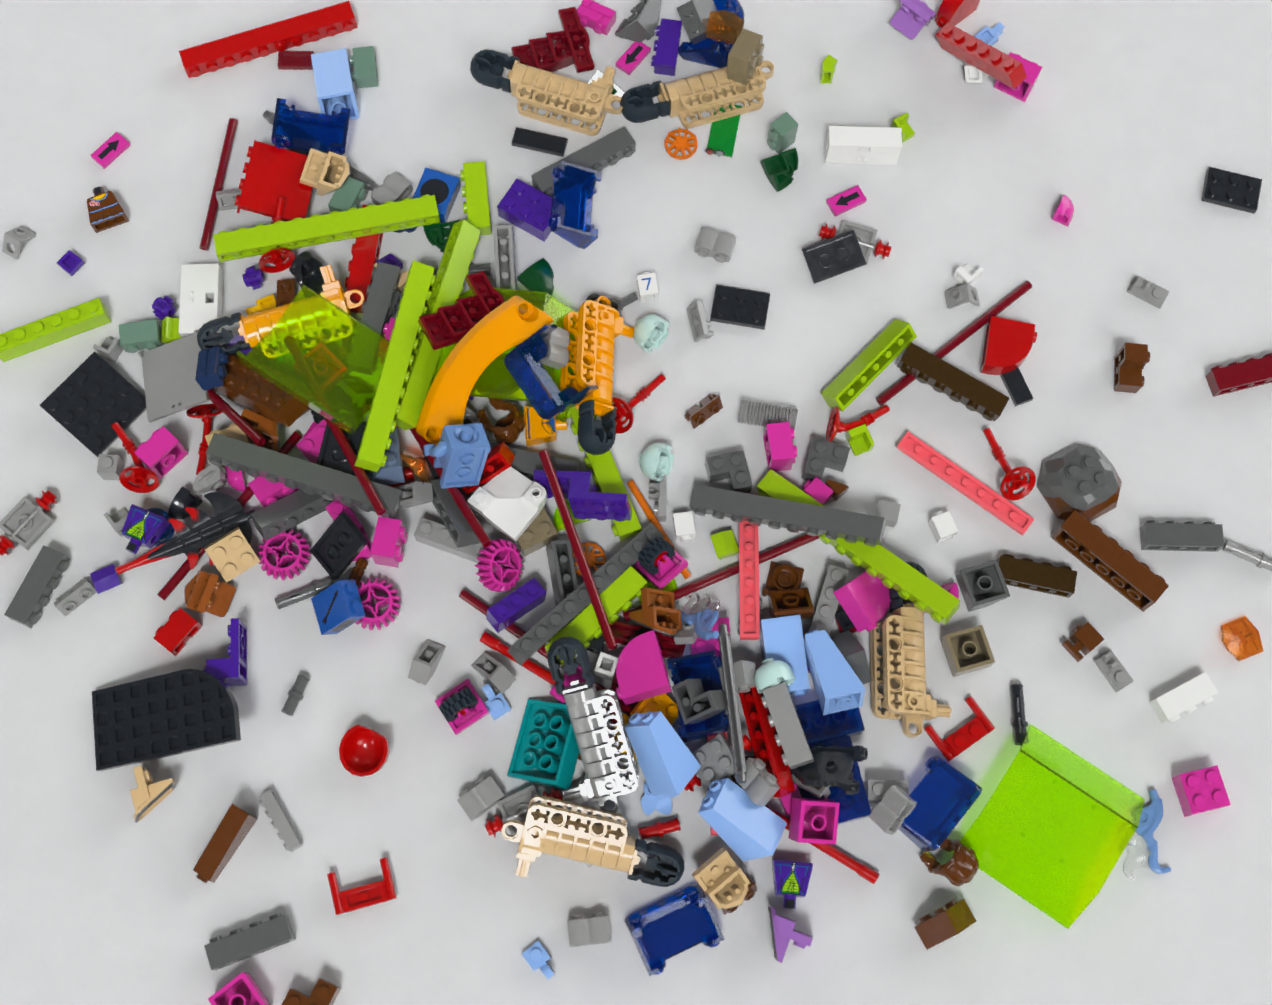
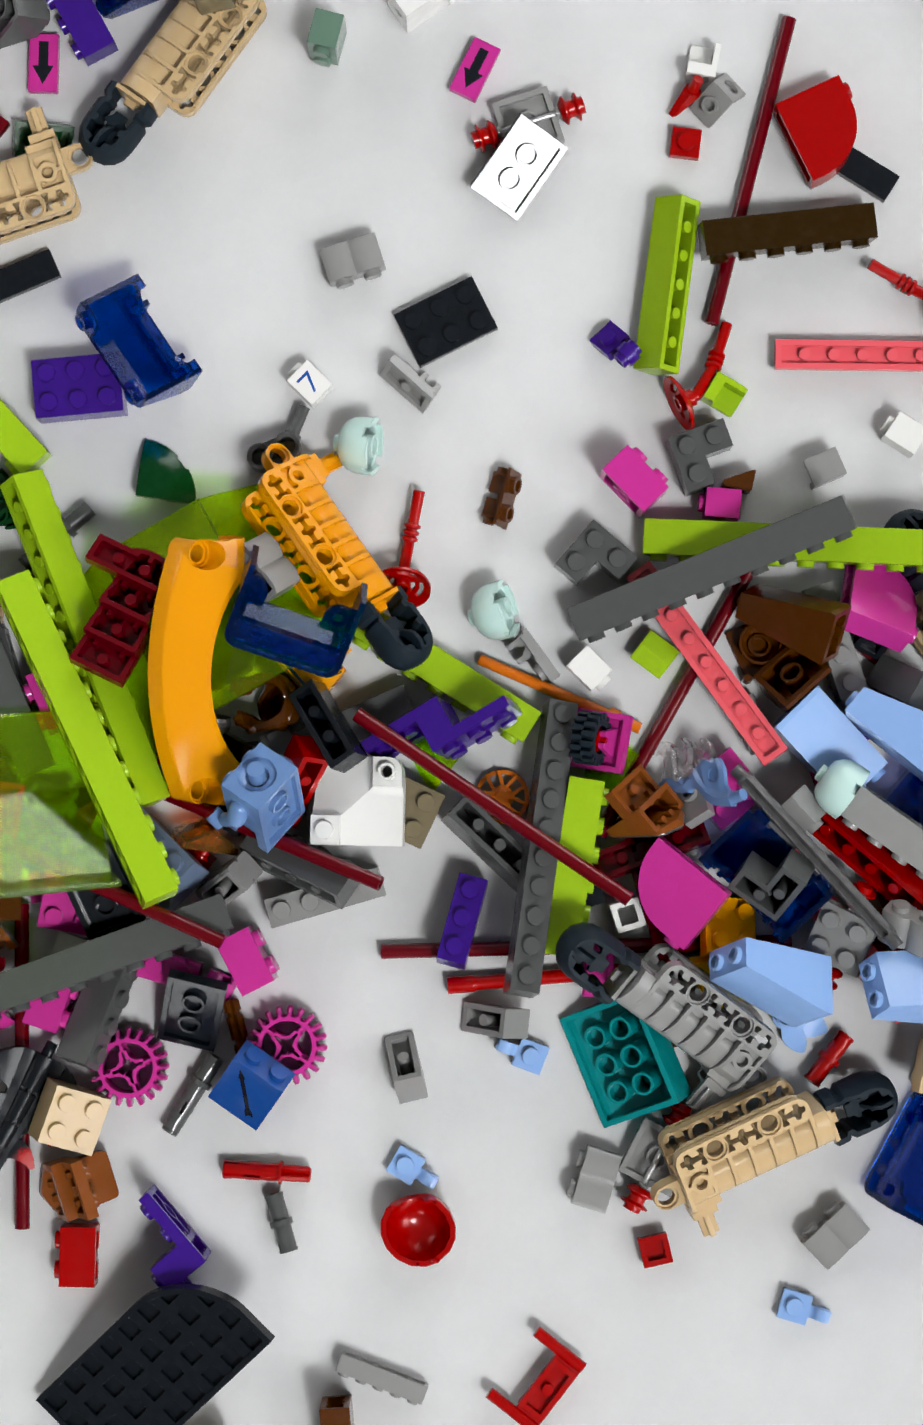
camera: 35 degrees left, 15 degrees up
(309, 662) = (266, 1171): none -> red axle
(385, 717) = (408, 1165): none -> light blue plate
(462, 706) = (490, 1089): plate -> none
(483, 863) = (655, 1249): none -> red plate
(491, 573) = (408, 889): dark pink gear -> none
(504, 257) = (103, 485): light grey brick -> none
(523, 449) = (327, 726): none -> black brick
(594, 156) = (99, 263): dark grey brick -> none
(681, 144) = (201, 145): orange wheel -> none
(723, 135) = (247, 92): green piece -> none
(746, 409) = (555, 465): light grey piece -> none
(780, 168) = (357, 86): dark green brick -> none
(815, 576) = (795, 619): none -> reddish brown slope
(820, 375) = (616, 345): none -> dark purple plate
(929, 307) = (685, 143): none -> red plate
(949, 283) = (688, 95): none -> red bar

